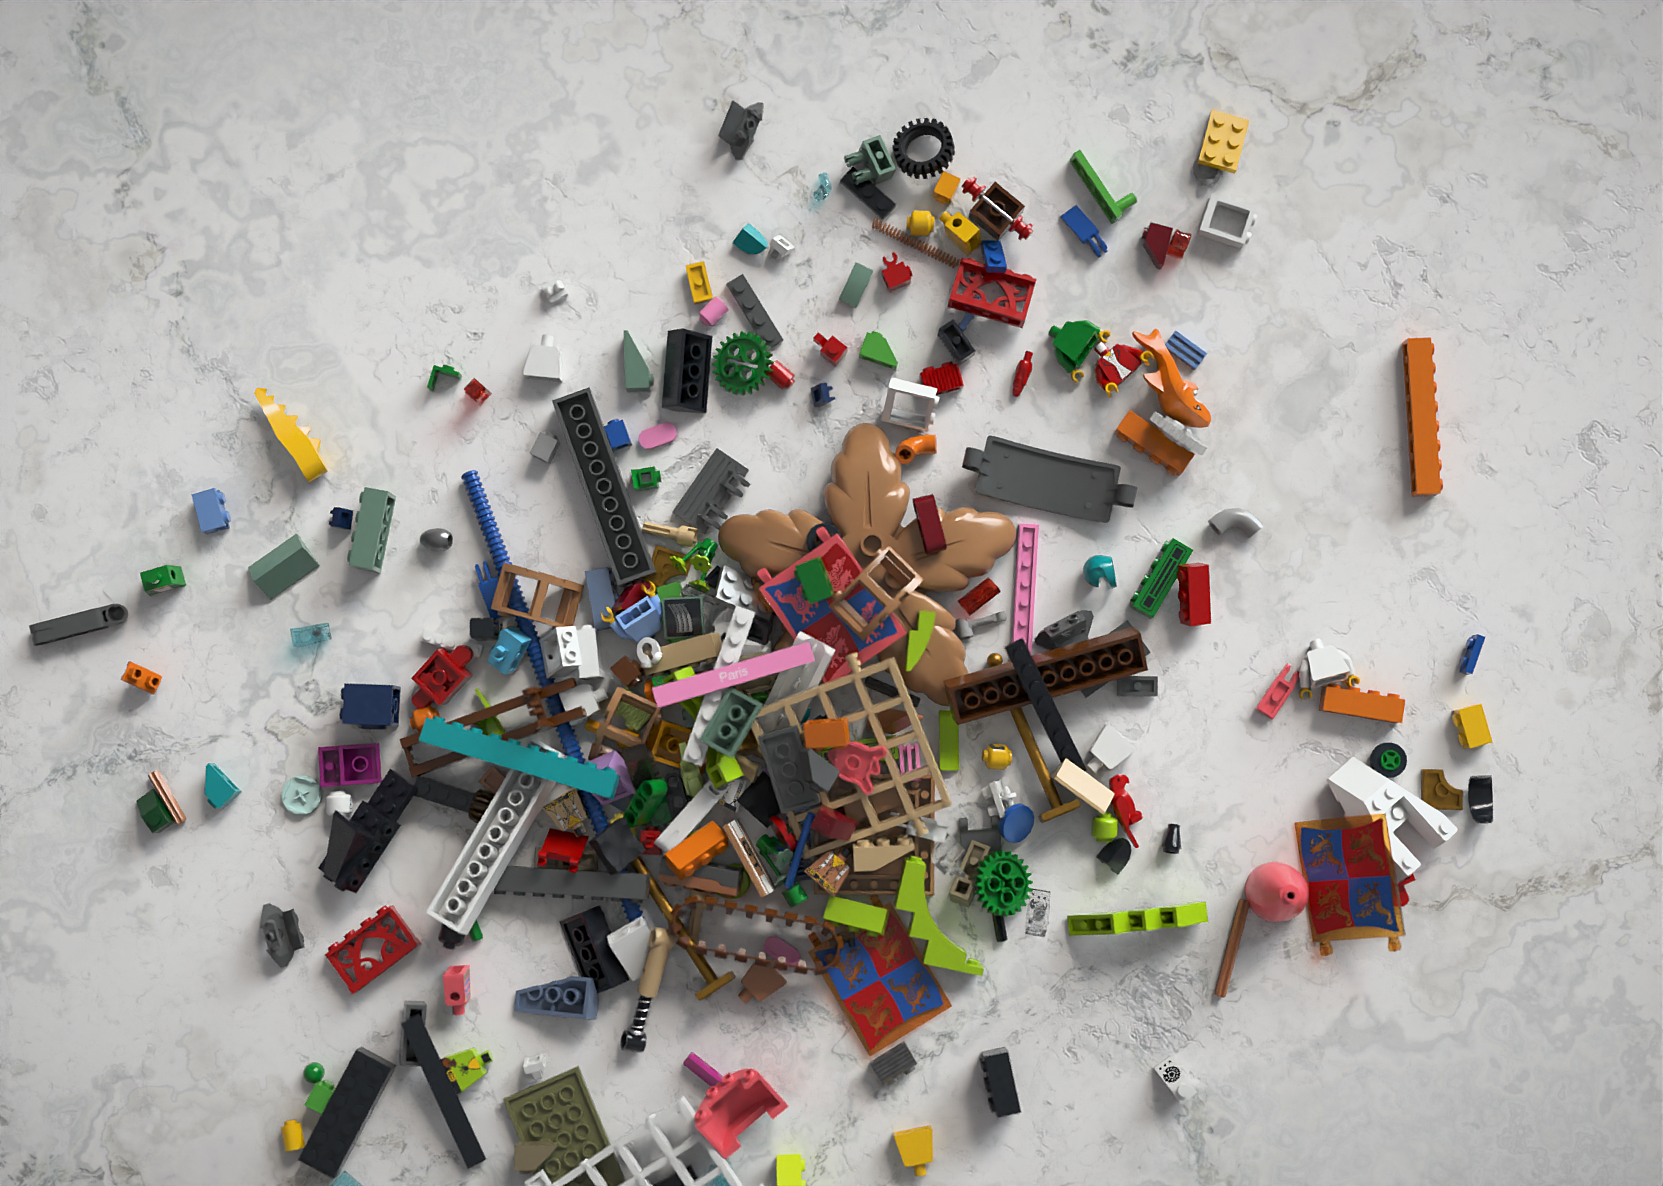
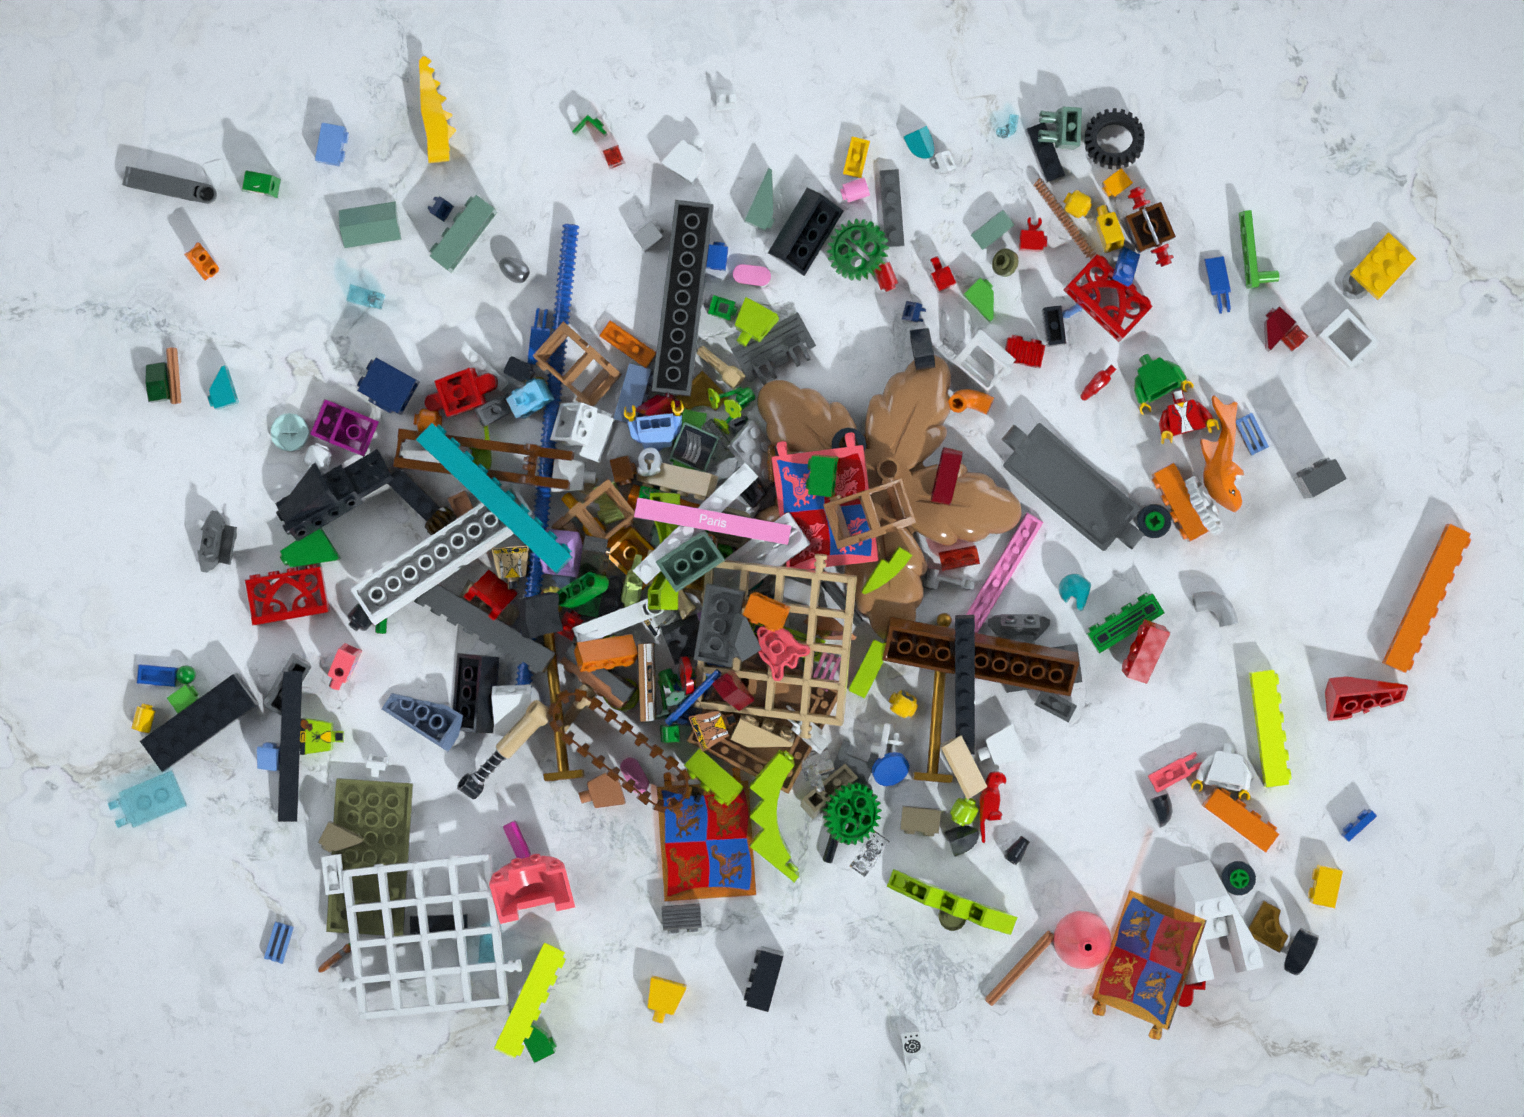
camera: 25 degrees right, 5 degrees up
(286, 1087) = (157, 675): none -> blue tile
(373, 894) = (310, 550): none -> green slope
(427, 1111) = (268, 756): none -> medium blue slope
(480, 678) = (493, 410): none -> dark grey plate
(575, 555) = (628, 344): none -> orange tile
(681, 475) = (754, 321): none -> lime torso
(740, 127) = (964, 36): dark grey piece -> none
(843, 703) = (794, 590): none -> white slope
(847, 422) = (922, 349): none -> black beam
(882, 308) = (1005, 262): none -> olive plate
(1068, 856) = (920, 819): none -> dark tan brick
(1135, 477) = (1148, 518): none -> black wheel
(1145, 938) = (951, 922): none -> olive plate
(1268, 355) = (1319, 478): none -> dark grey brick
(1284, 732) = (1162, 808): none -> black brick
(1343, 607) = (1269, 728): none -> neon yellow brick
(1404, 537) = (1352, 695): none -> red wedge

